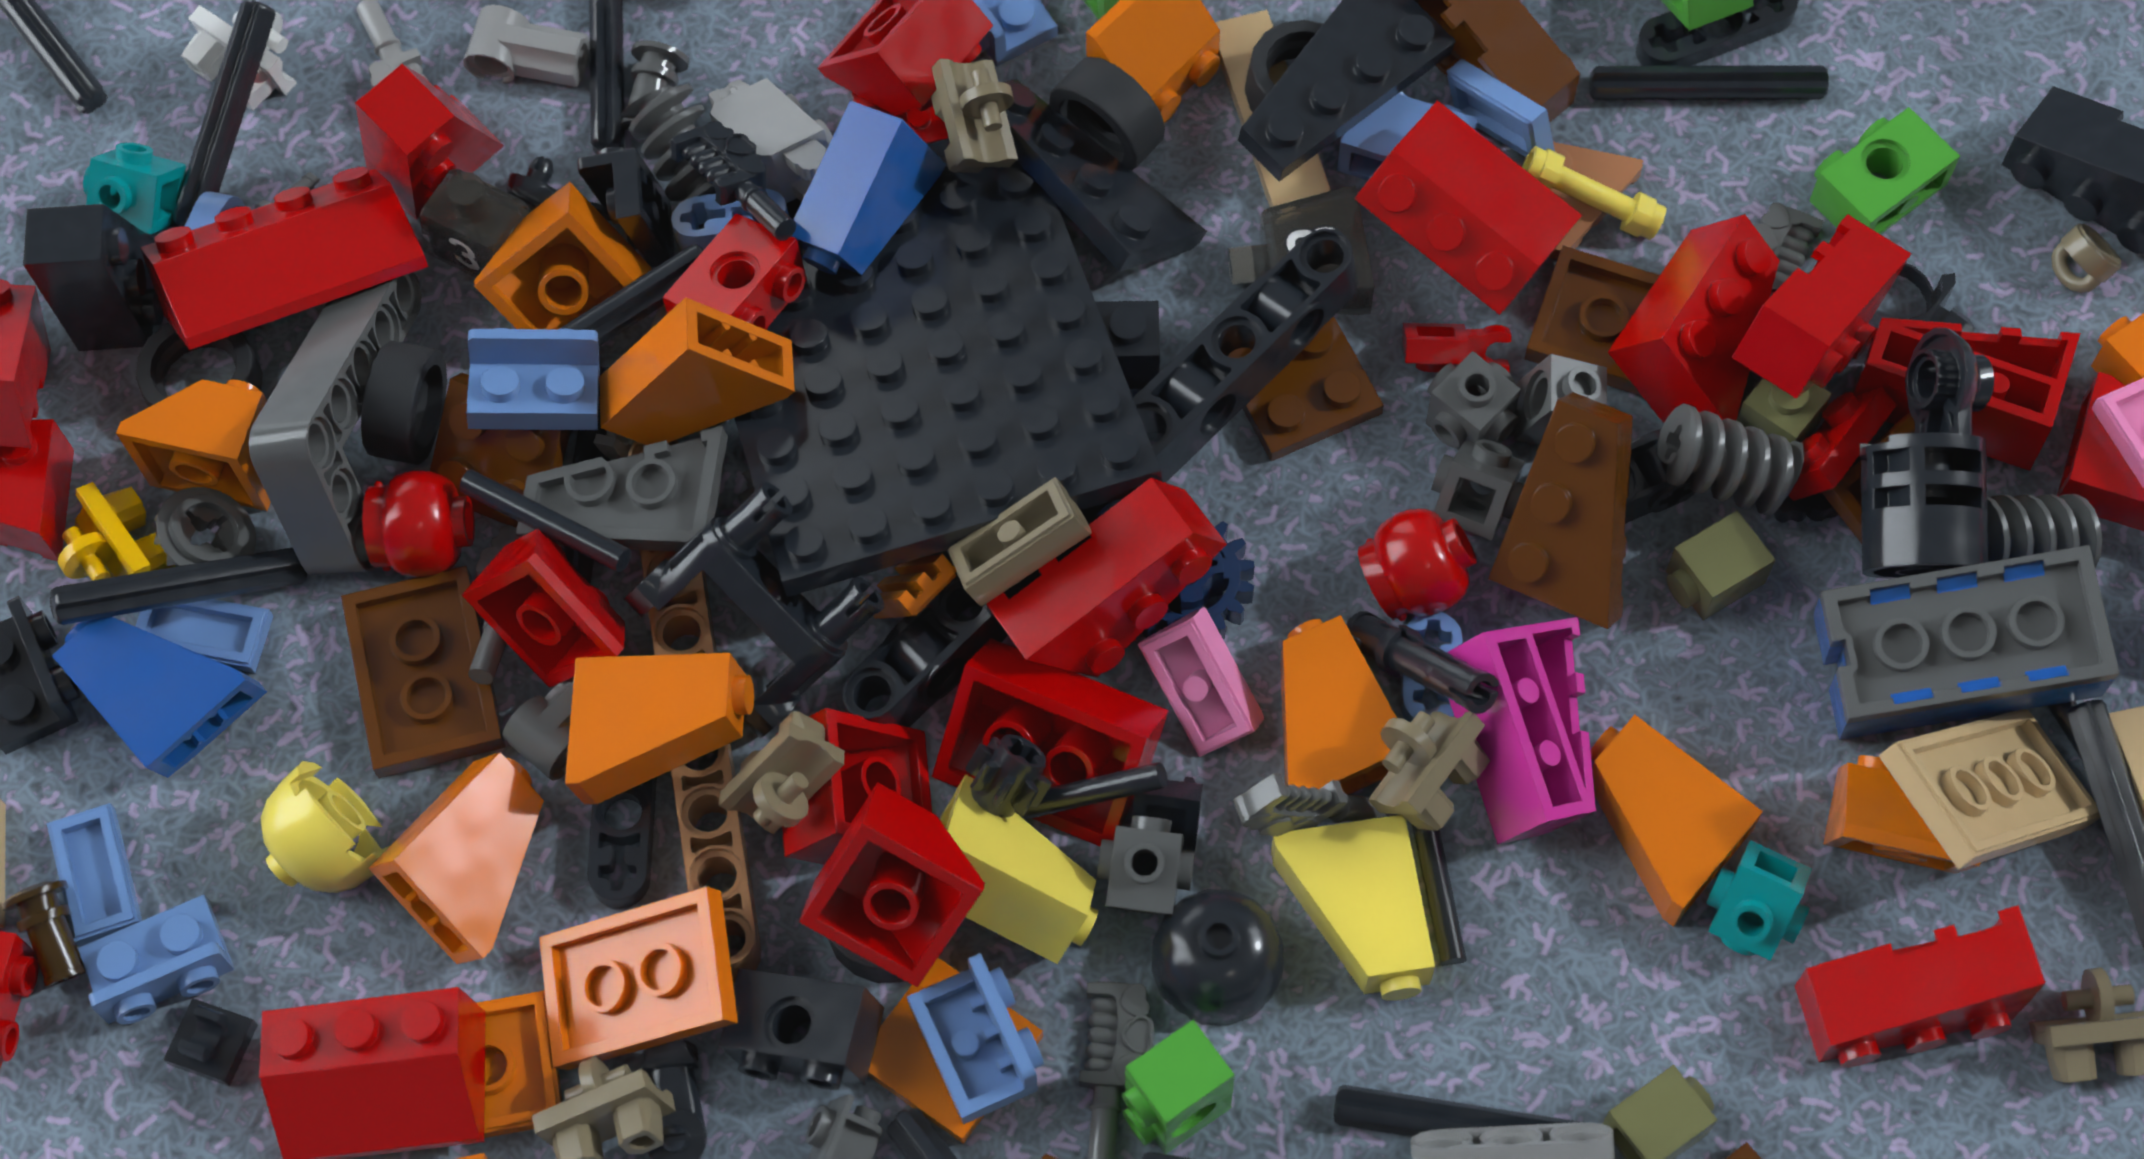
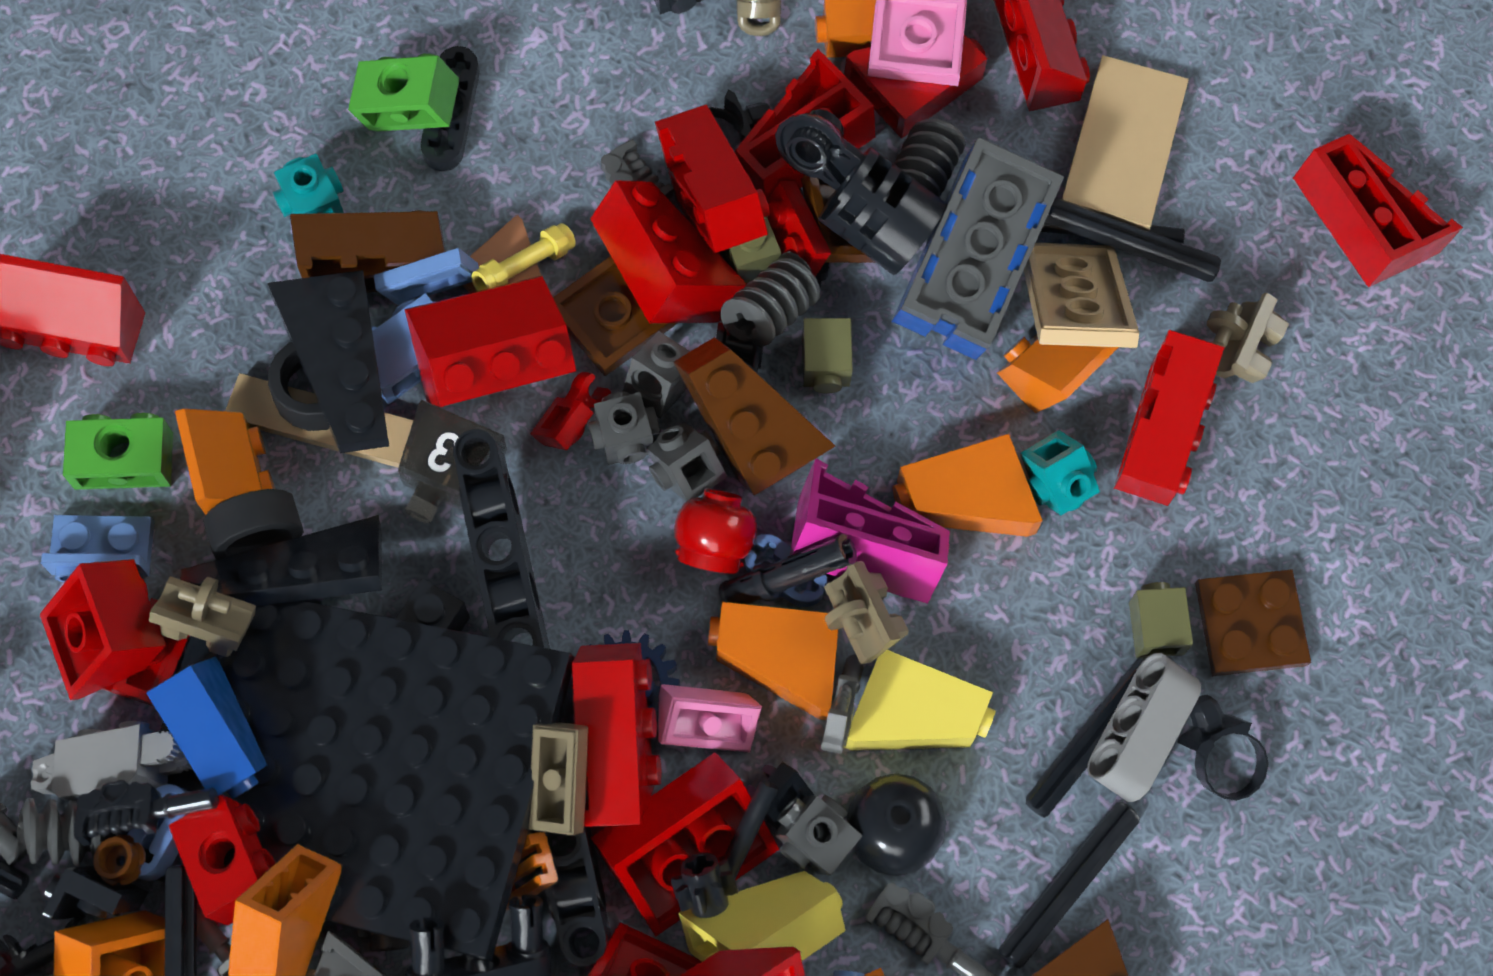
camera: 65 degrees left, 5 degrees up
(677, 197) = (108, 856): none -> reddish brown plate
(1176, 1088) = (981, 904): bright green brick -> none
(1312, 396) = (550, 524): reddish brown plate -> none
(1440, 896) = (939, 661): black bar -> none
(1709, 82) = (487, 141): black axle -> none
(1901, 150) = (627, 61): bright green brick -> none

